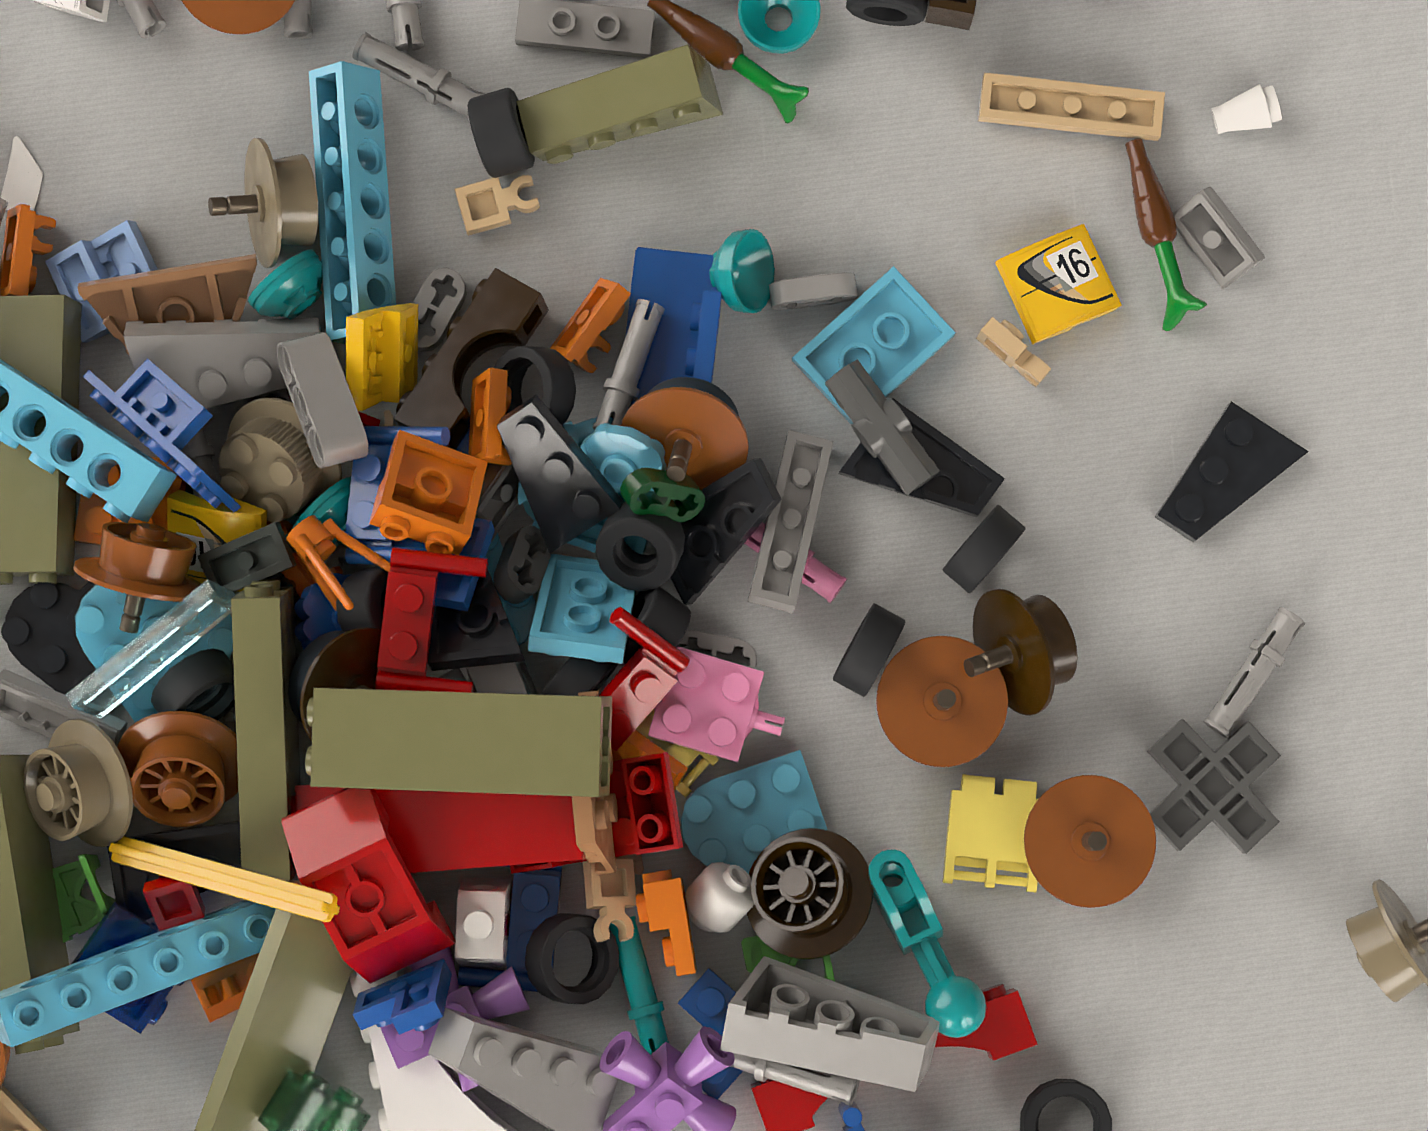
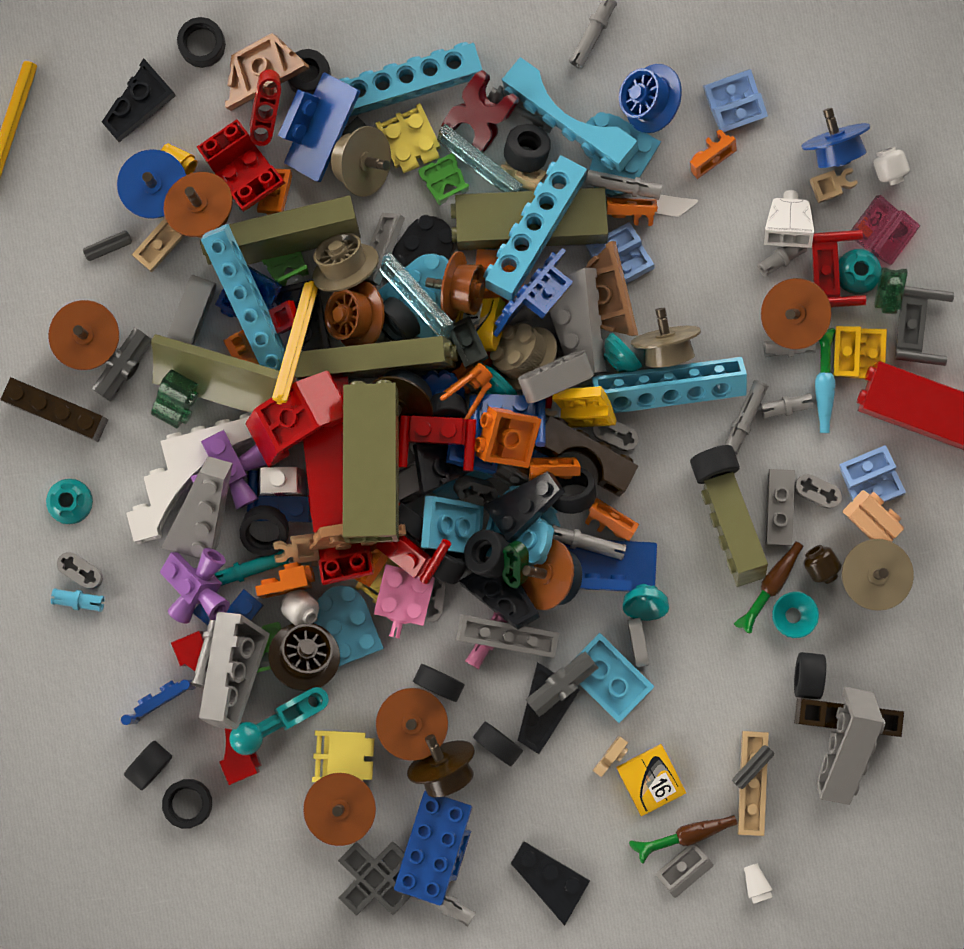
camera: 90 degrees right, 0 degrees up
(147, 1077) = (192, 310): none -> light grey beam
(408, 1001) = (236, 444): blue plate -> none
(487, 205) = (676, 459): tan plate -> none
(1044, 101) = (752, 767): none -> dark grey axle
(1167, 674) = (434, 849): none -> blue bracket

